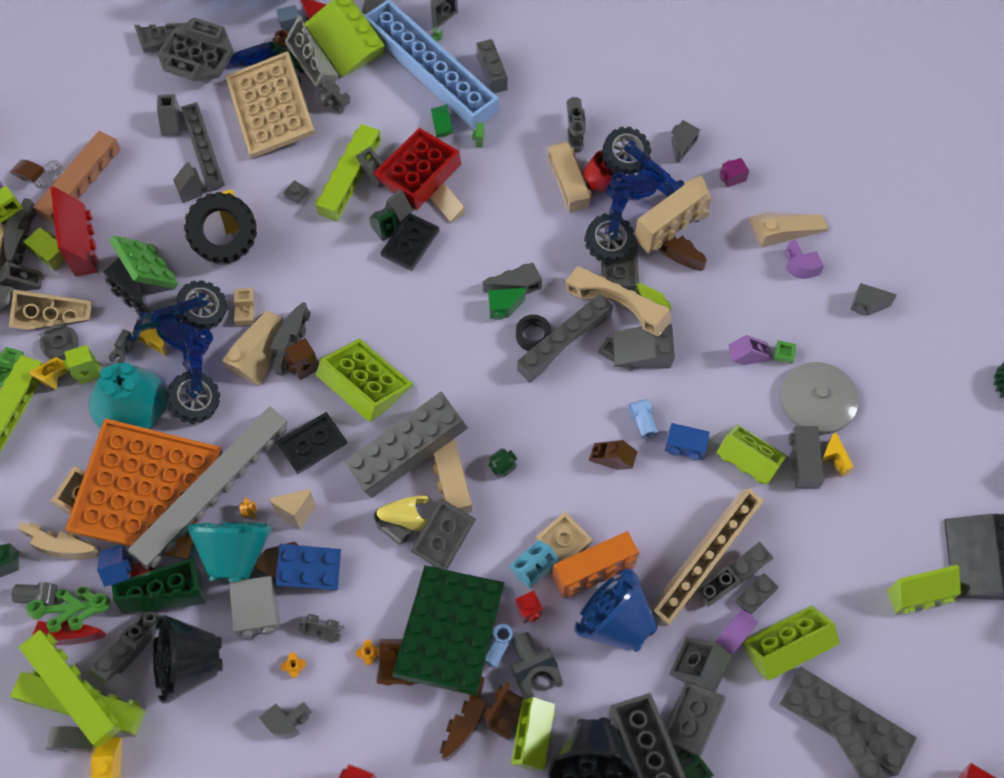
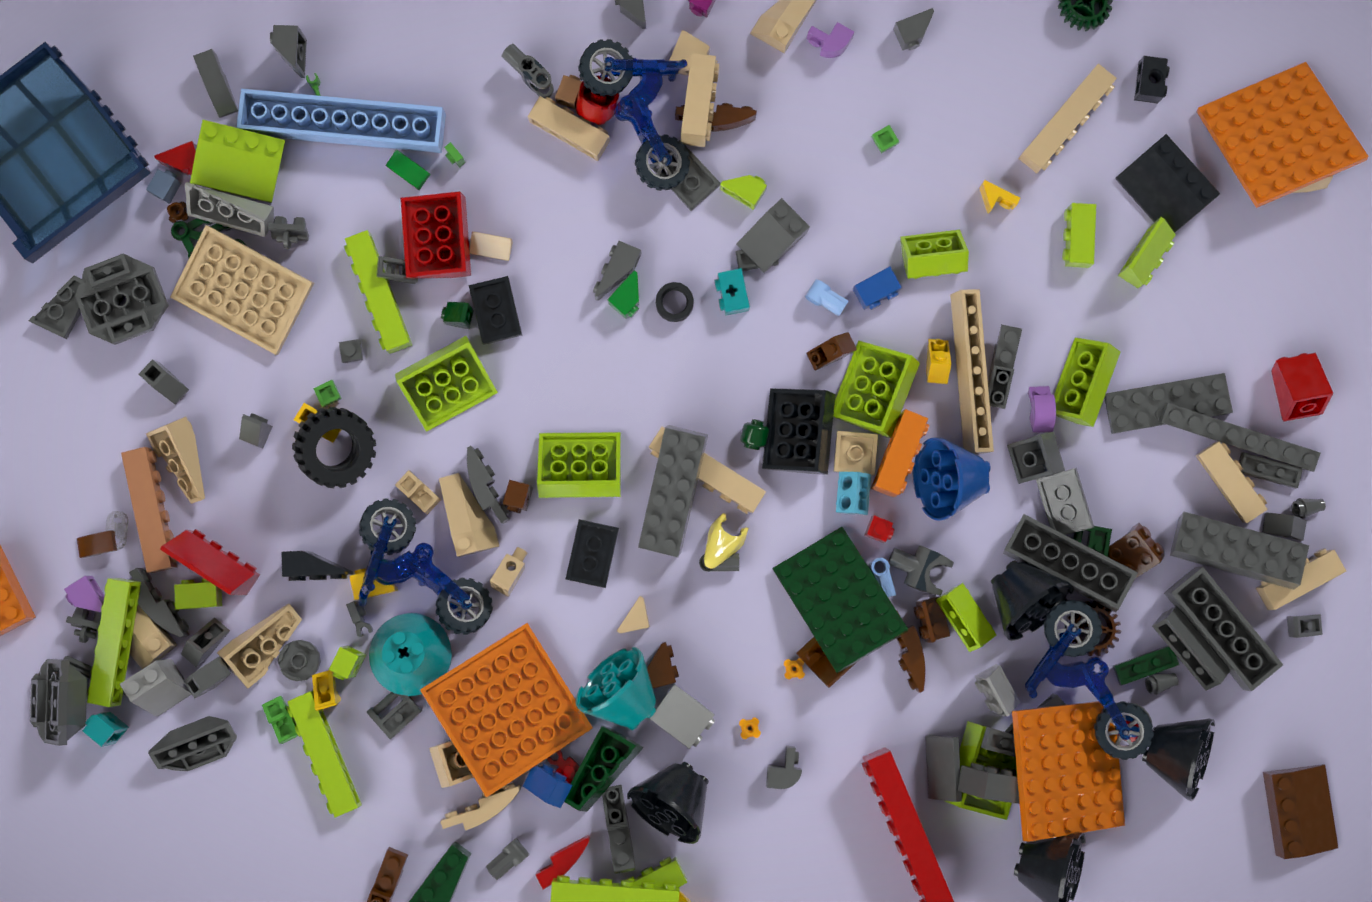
camera: 45 degrees left, 20 degrees up
(75, 432) = (397, 717): none -> dark grey plate
(96, 604) = (549, 843): bright green plant -> none
(134, 155) = (179, 449): none -> tan wedge
(143, 262) = (301, 535): bright green plate -> none
(202, 146) = (223, 381): dark grey plate -> none
(208, 488) = (555, 663): light grey brick -> none
(244, 403) = (505, 580): none -> tan torso
(248, 508) = (598, 649): light orange plate -> none
(252, 55) = (174, 254): clear blue hinge -> none
(255, 202) = (327, 393): none -> bright green plate
(308, 567) = (691, 651): blue plate -> none
(313, 625) = (749, 678): dark grey hinge -> none
(332, 257) = (445, 383): none -> lime slope
(399, 205) = (457, 290): dark grey slope -> none
(443, 535) = (766, 533): dark grey tile -> none
(491, 66) = (398, 74): dark grey brick -> none
(538, 488) = (799, 430): none -> black slope
(541, 356) = (704, 284): dark grey arch -> none
(580, 358) = (735, 280): none -> teal brick
(585, 153) = (568, 91): none -> medium nougat brick
(587, 285) = (679, 221): tan arch -> none
(622, 505) = (875, 388): none -> lime slope
(686, 528) = (938, 361): none -> yellow slope
(749, 350) = (858, 163): medium lavender slope -> none
(756, 594) = (1029, 365): dark grey plate -> none
(806, 457) = (976, 219): dark grey brick -> none
(819, 397) = (943, 156): light grey dish -> none
(879, 533) = (1079, 235): none -> lime brick
(940, 446) = (1067, 118): none -> tan brick

